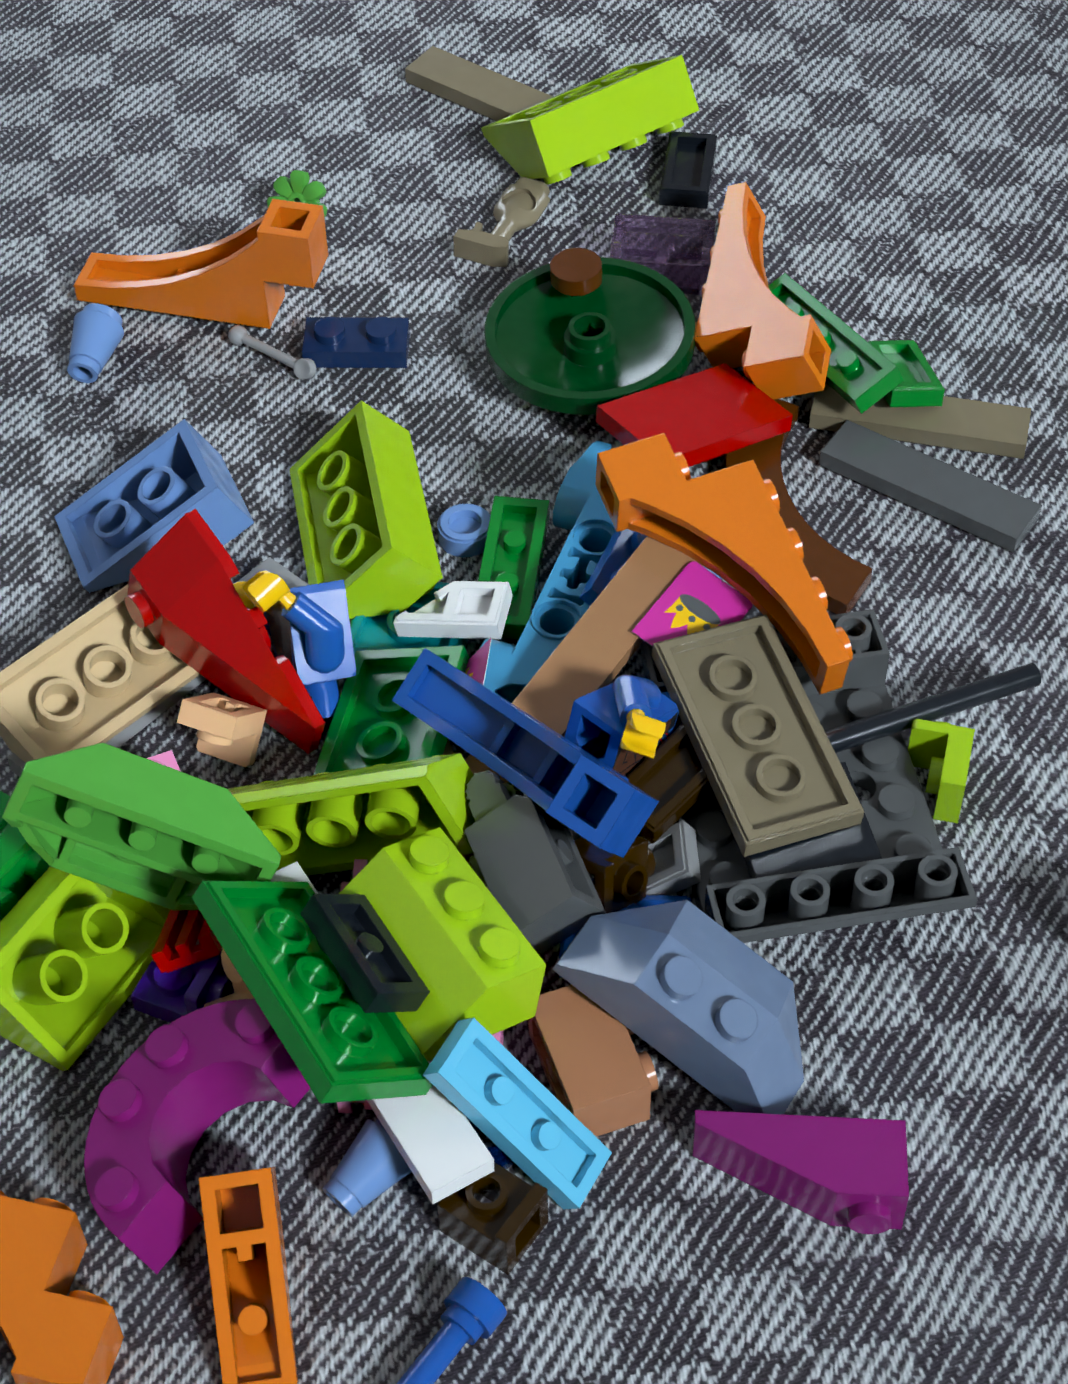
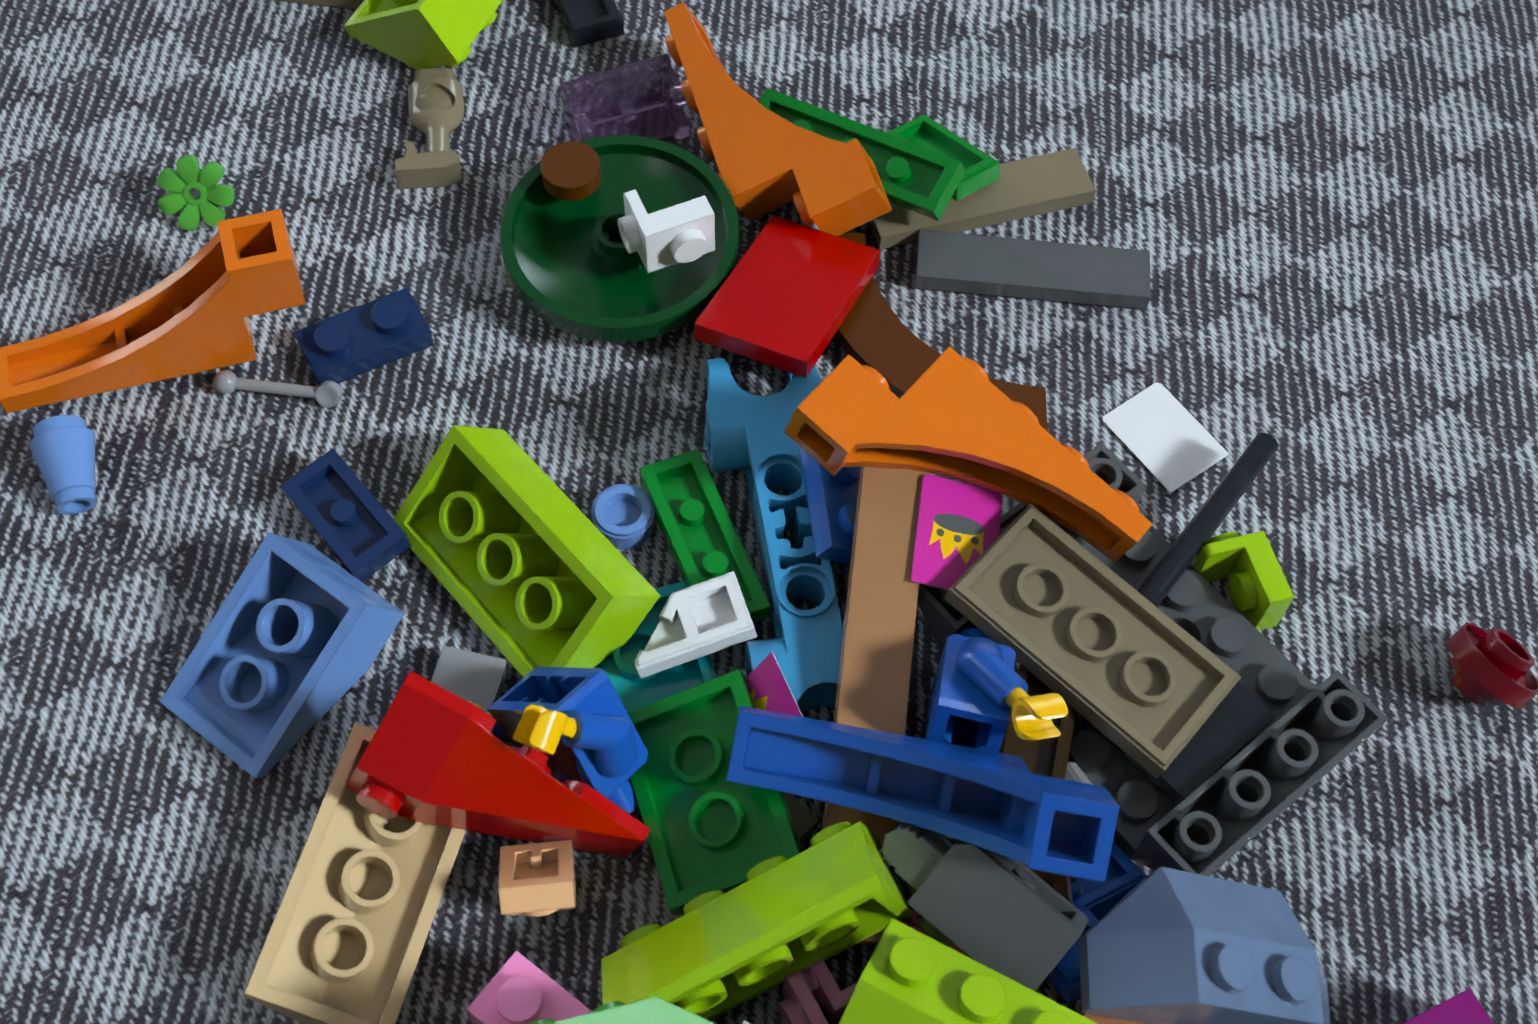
camera: 35 degrees left, 10 degrees up
(259, 448) = (346, 515): none -> dark blue plate
(617, 334) = (668, 235): none -> white bracket
(958, 647) = (1164, 436): none -> white sticker

